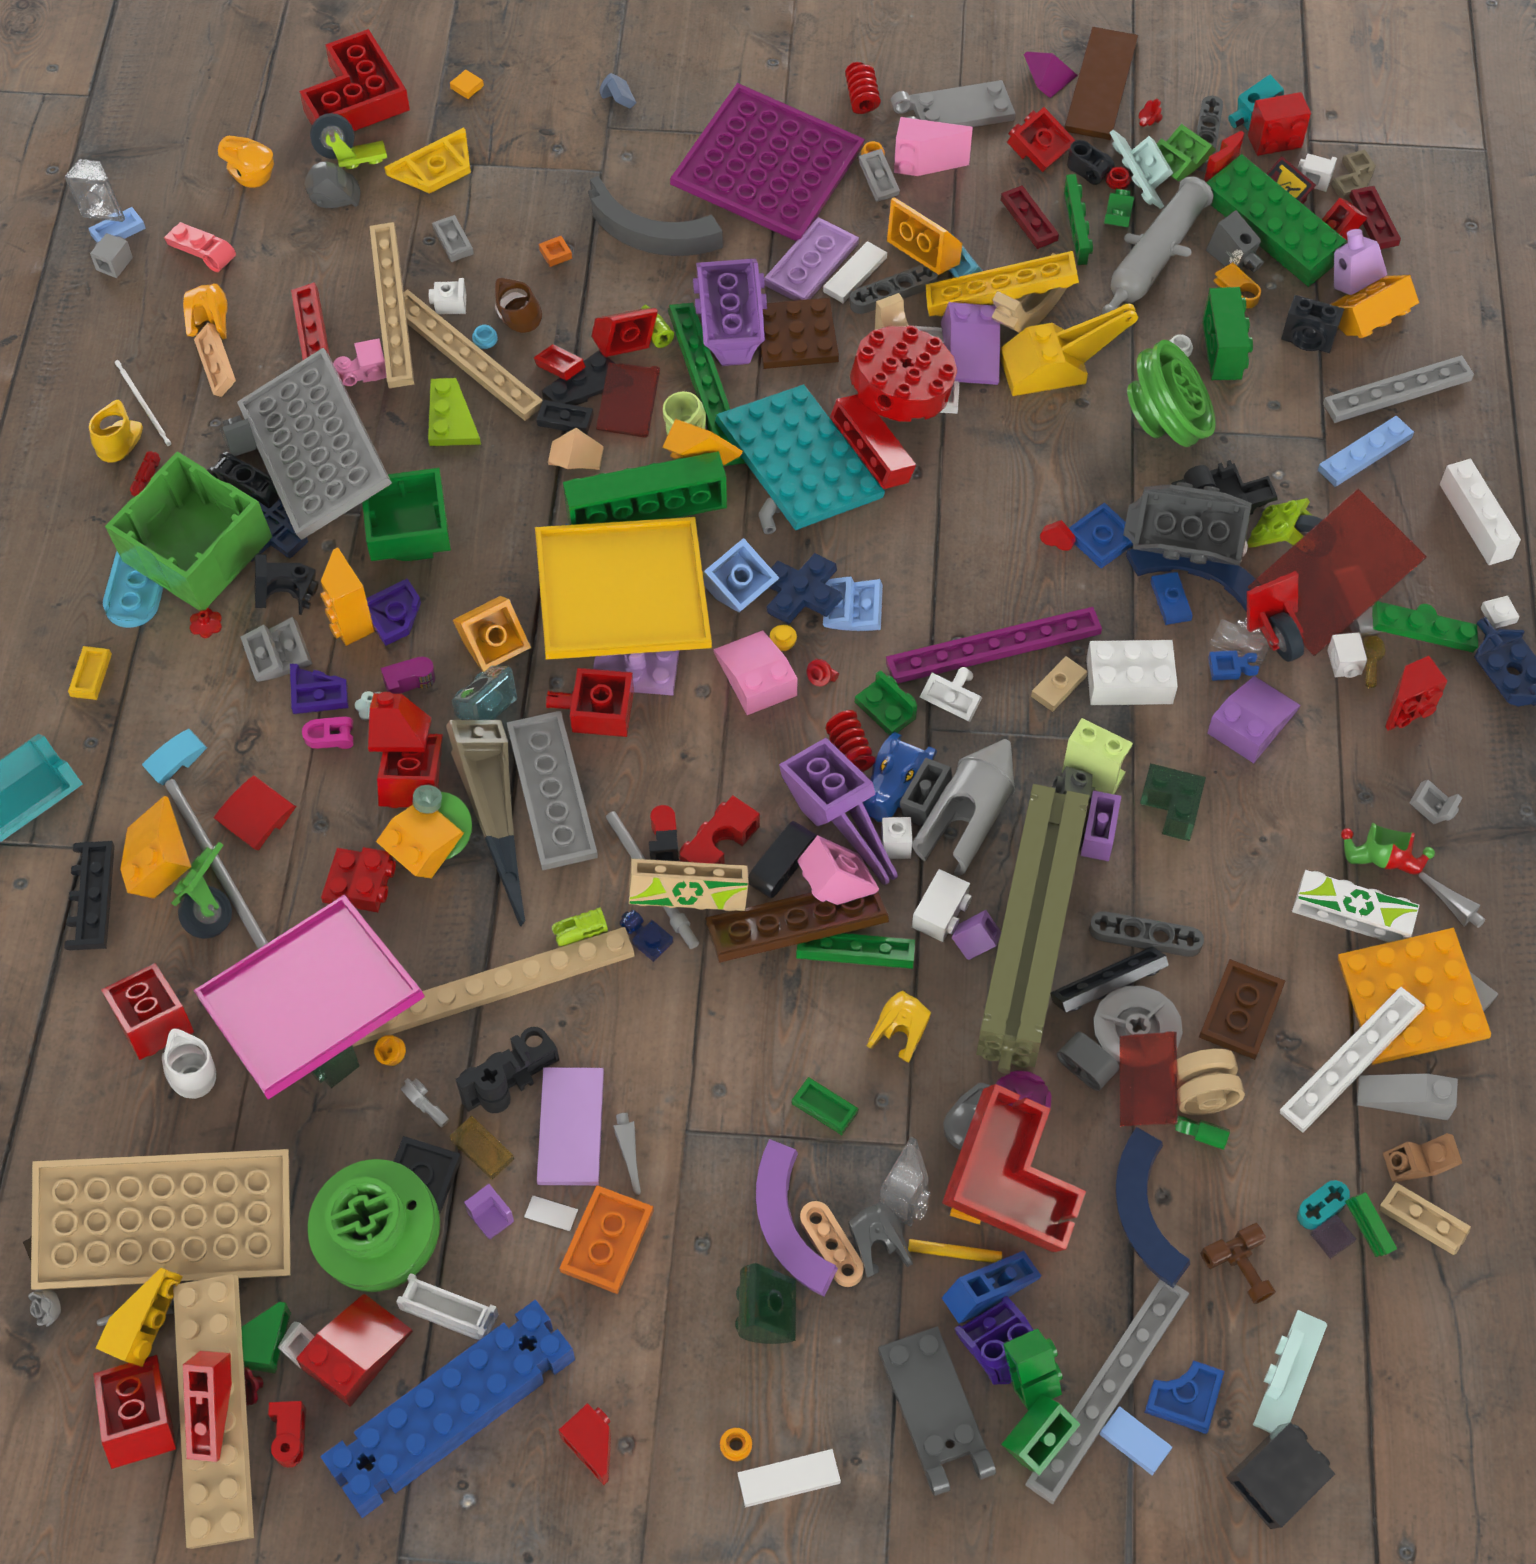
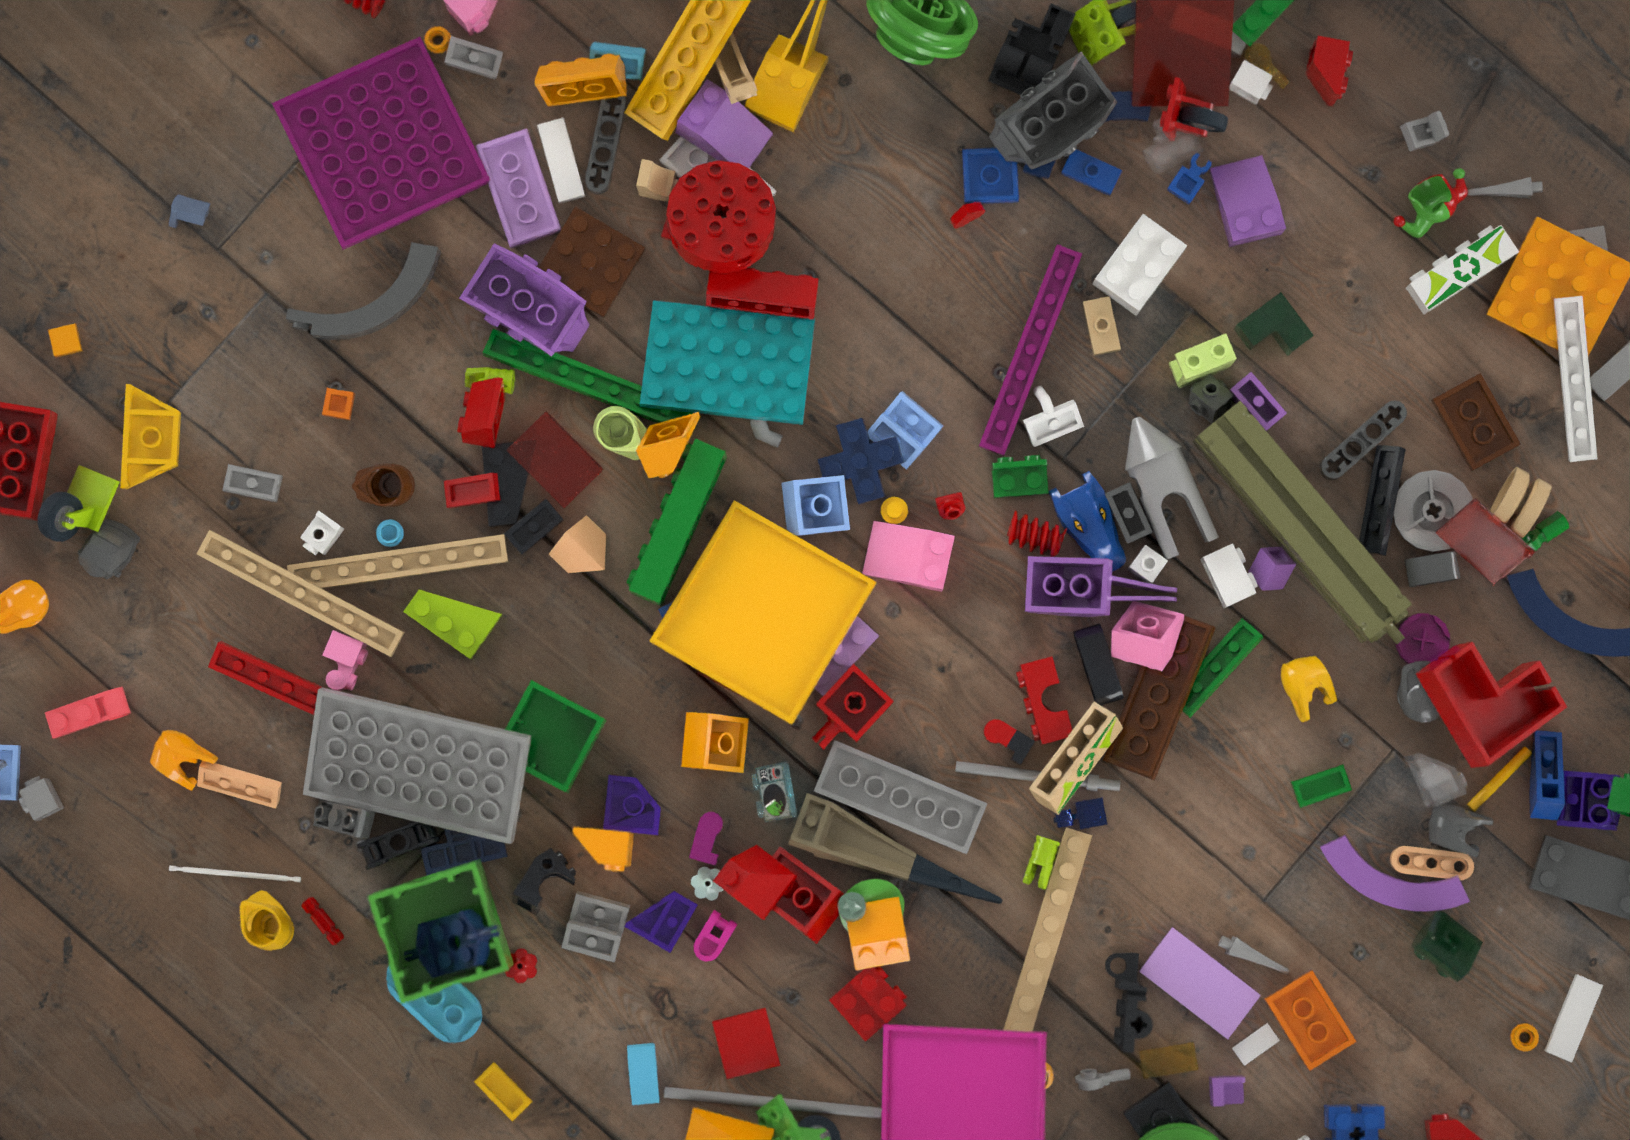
camera: 50 degrees left, 25 degrees up
(184, 539) = (438, 948): none -> dark blue plate

